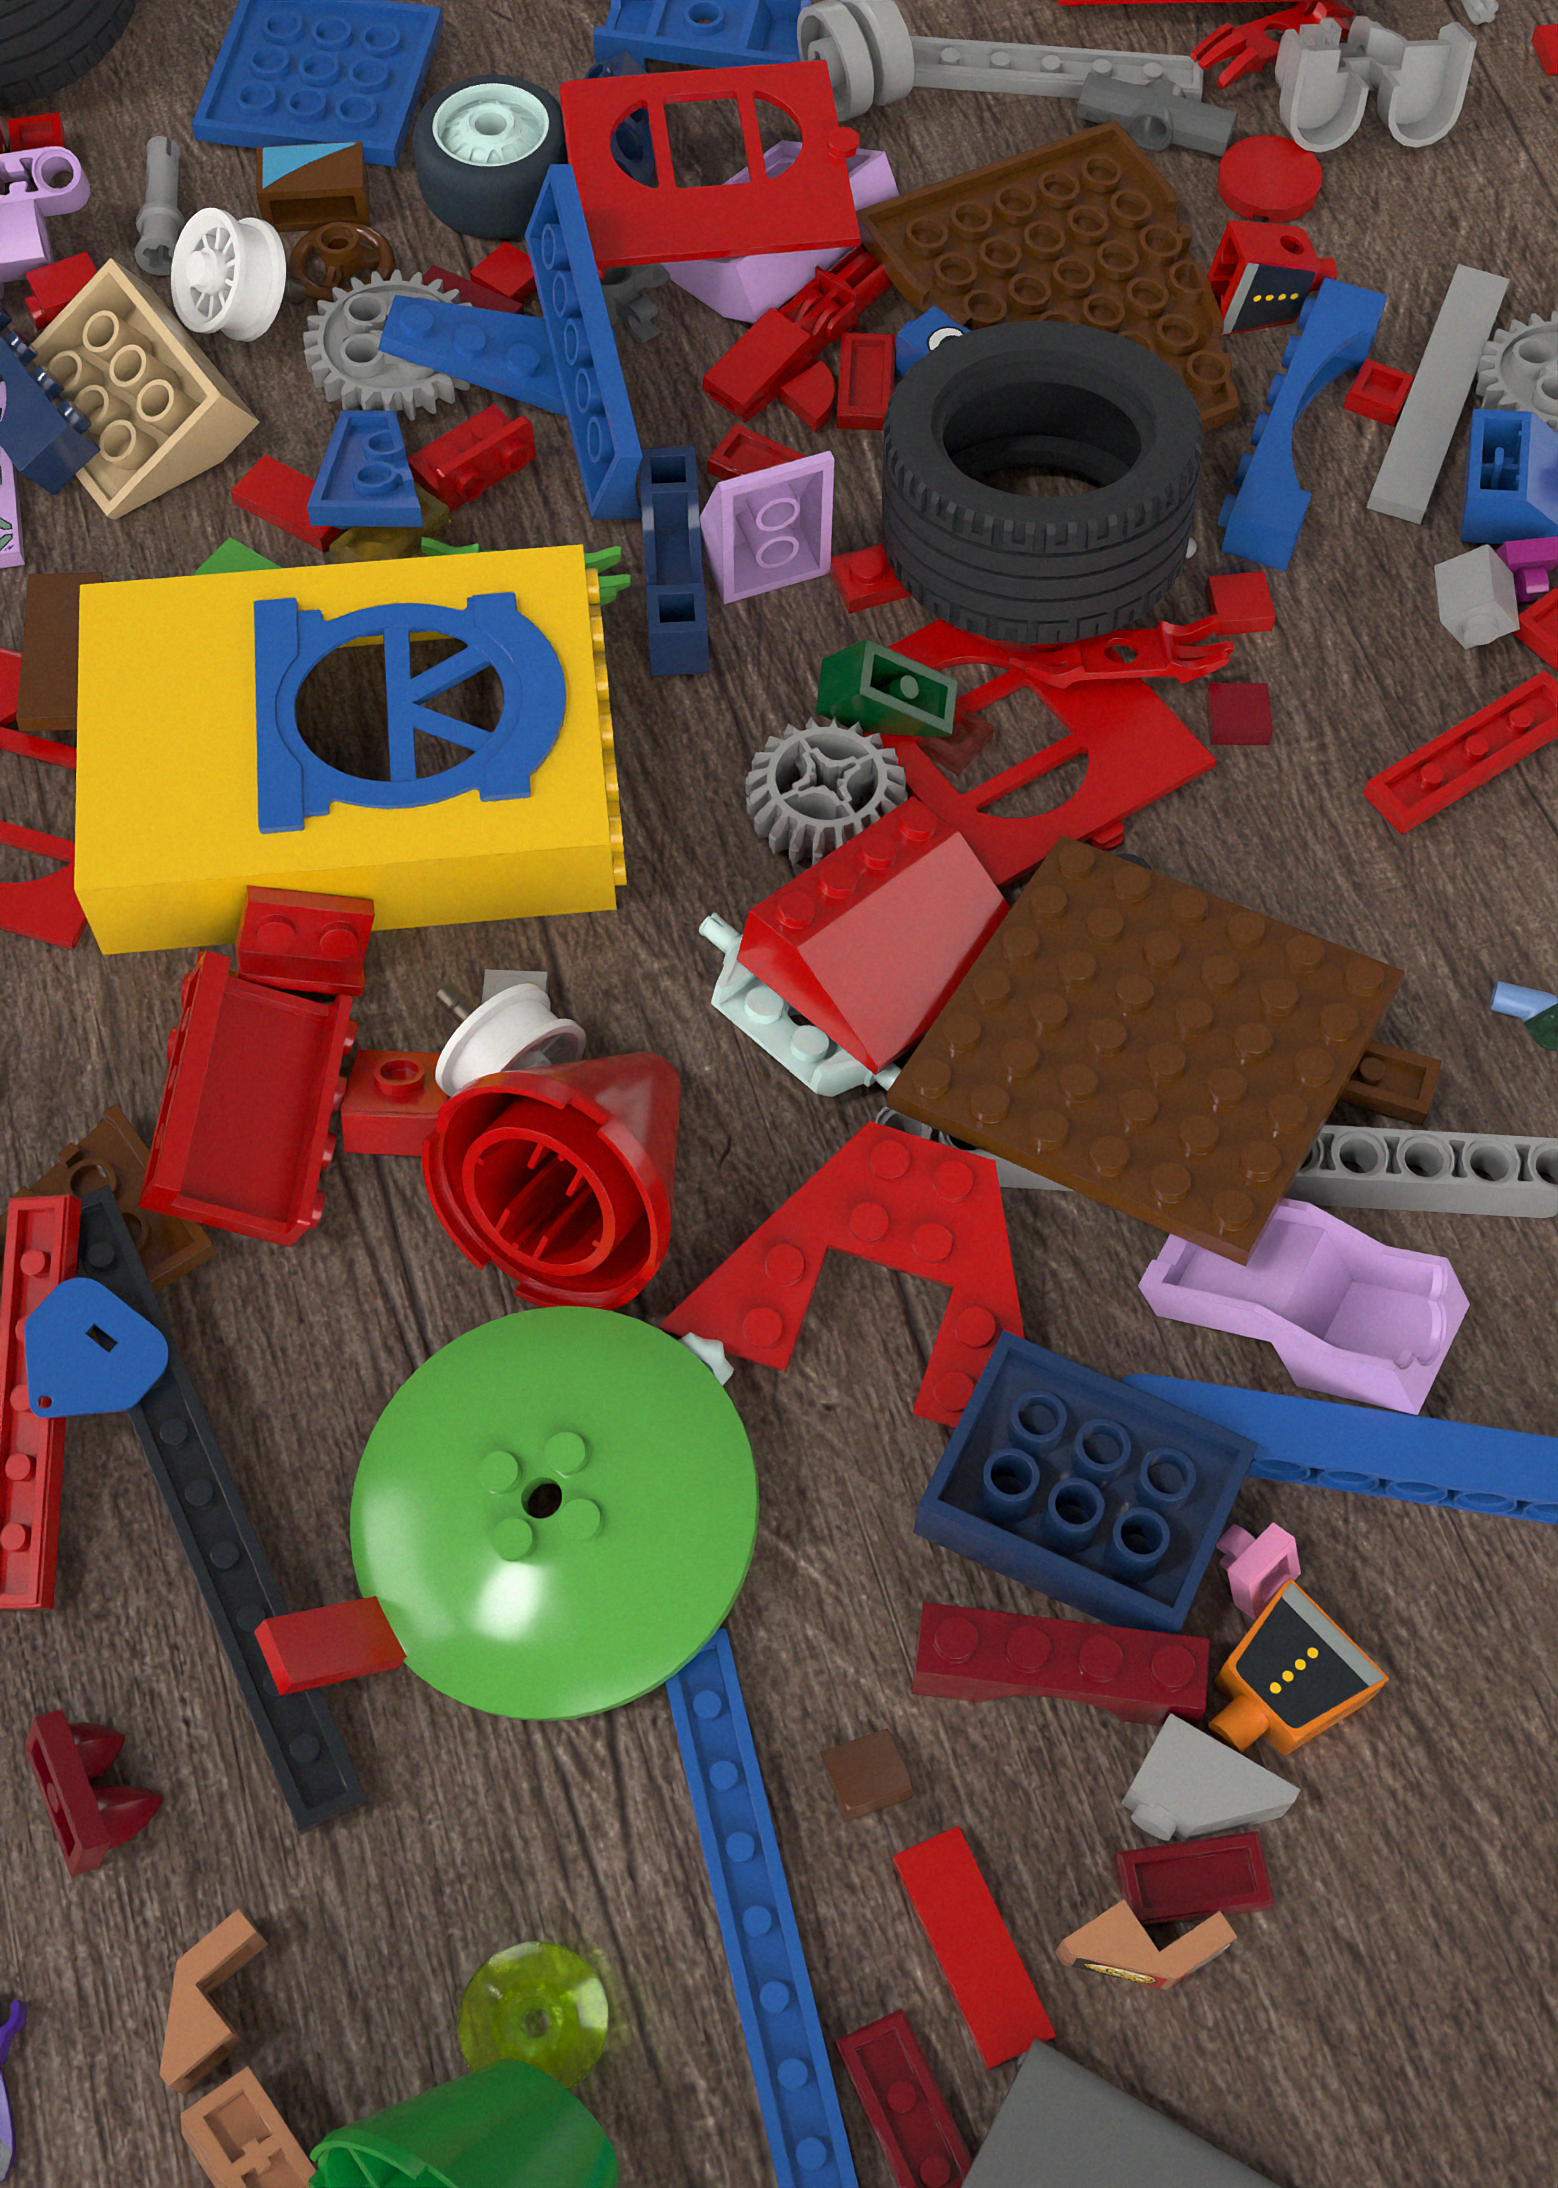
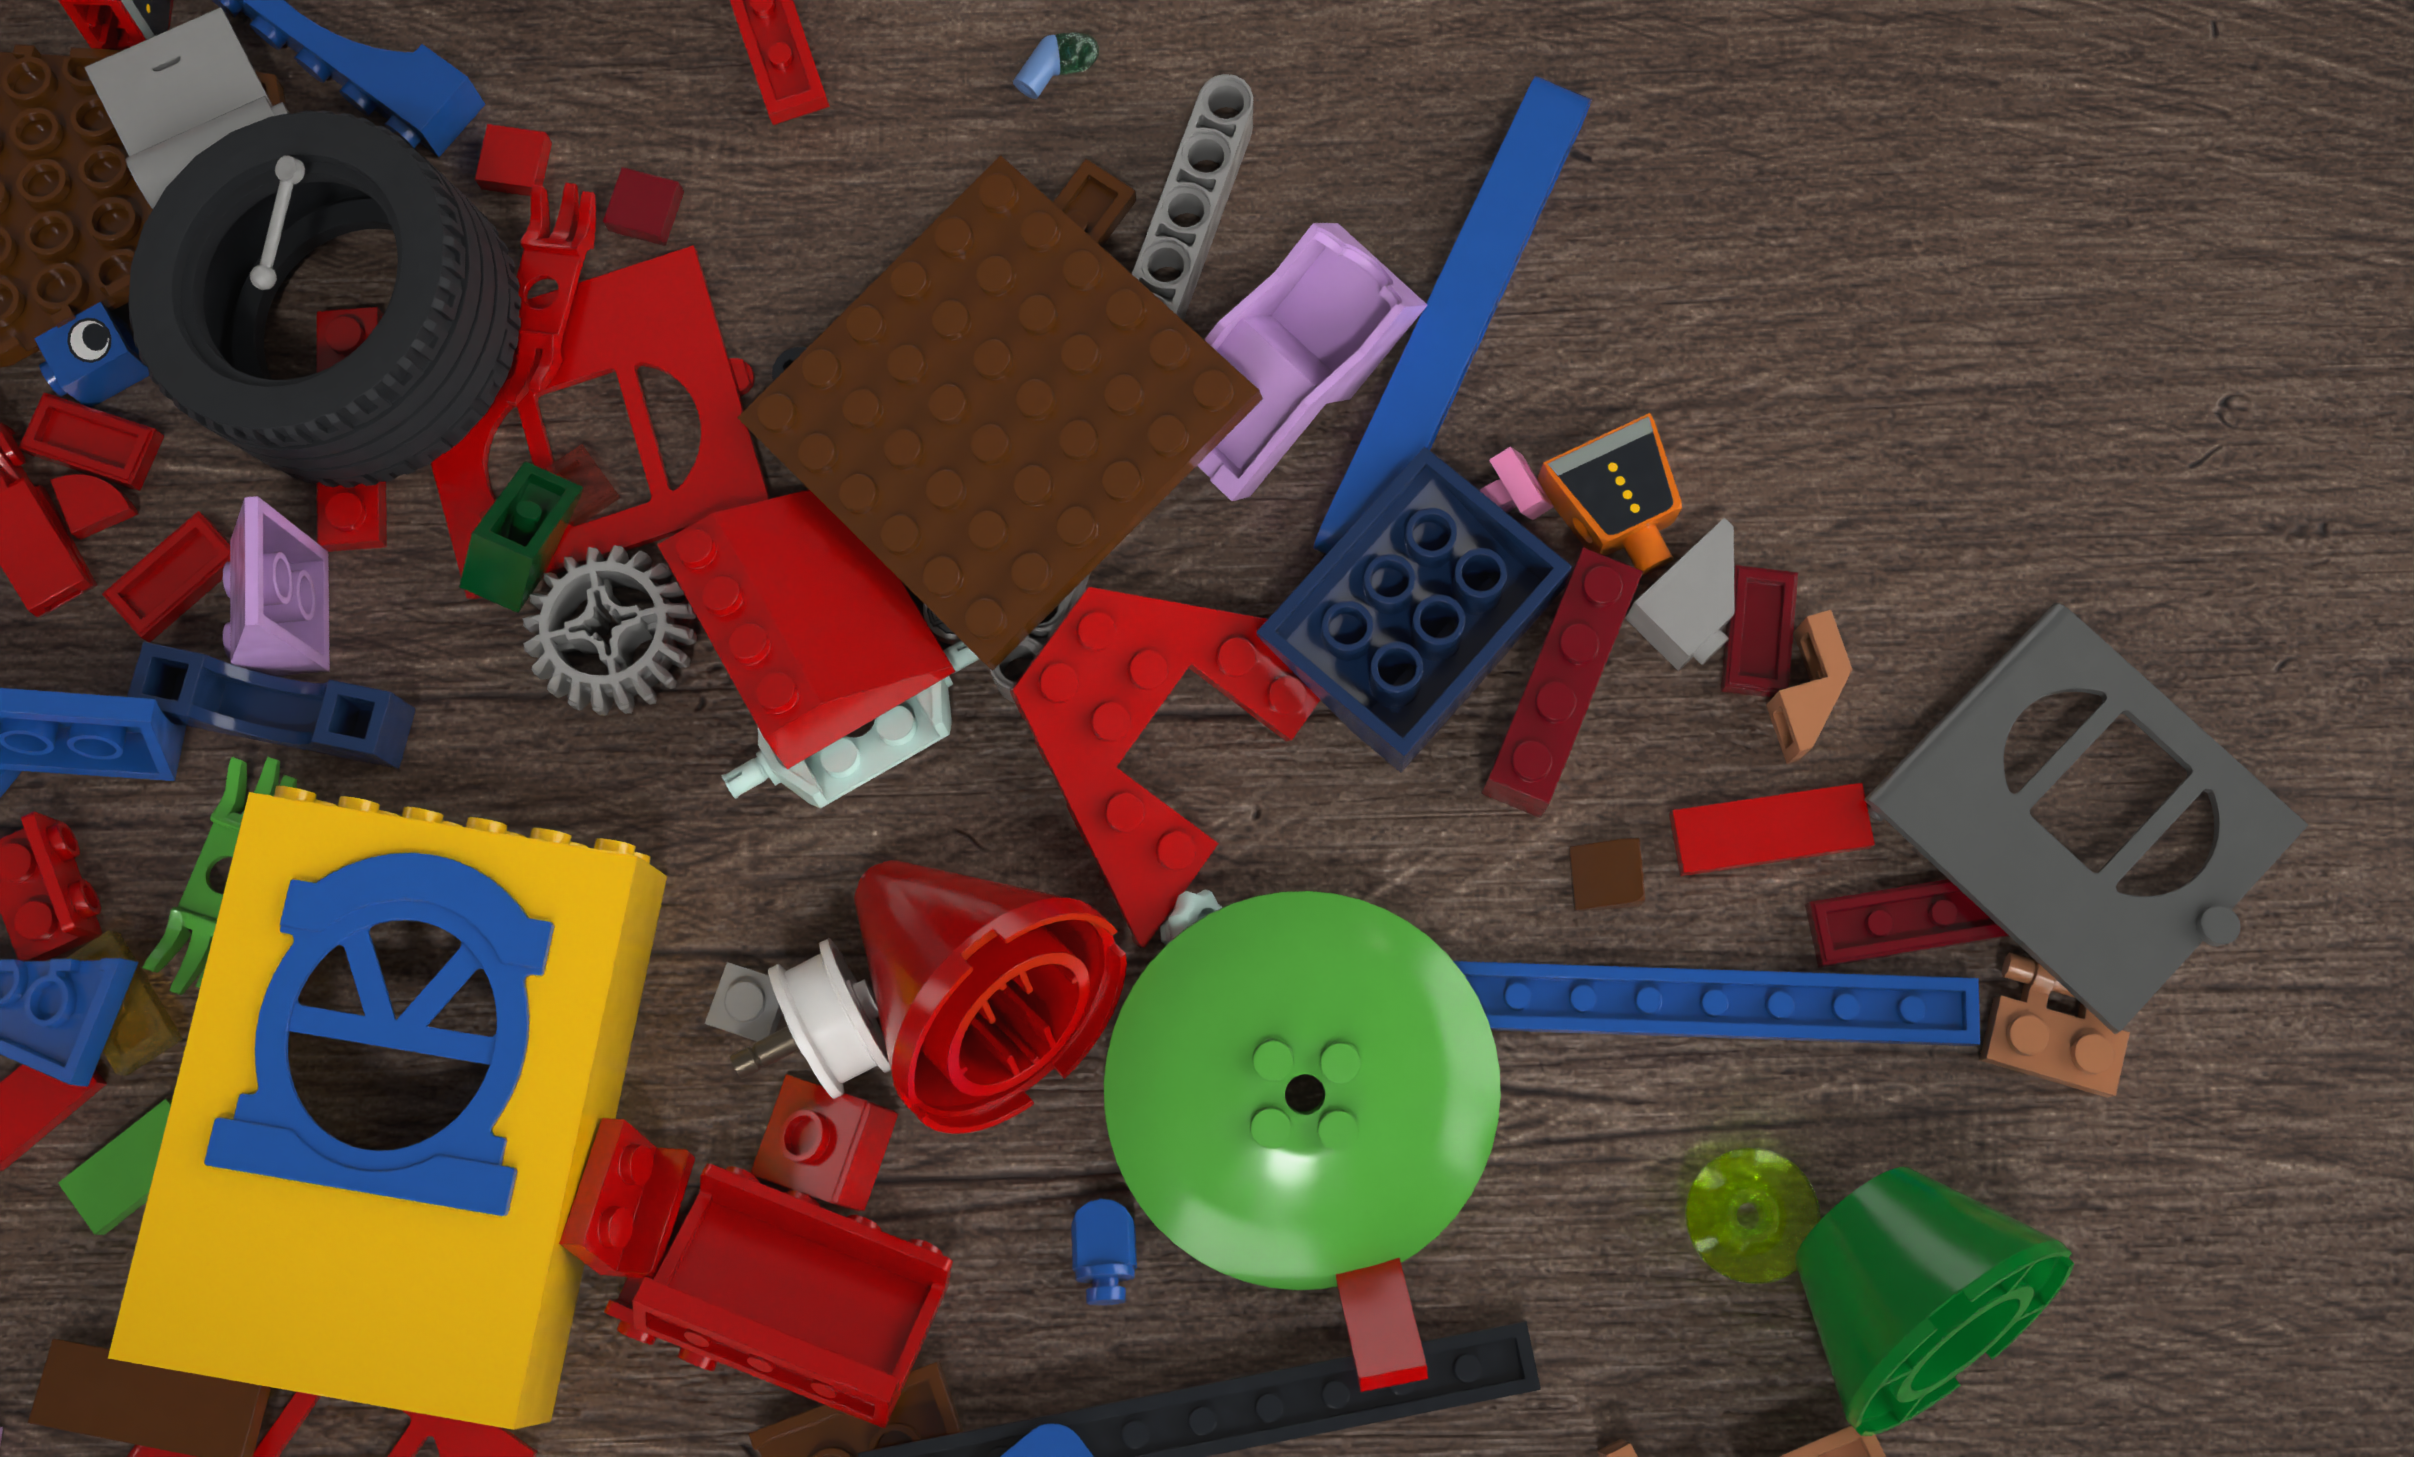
camera: 70 degrees left, 15 degrees up
(352, 1368) = (1103, 1250): none -> blue arm
(1130, 397) = (290, 172): none -> light grey hinge
(1194, 335) = (179, 97): none -> light grey door

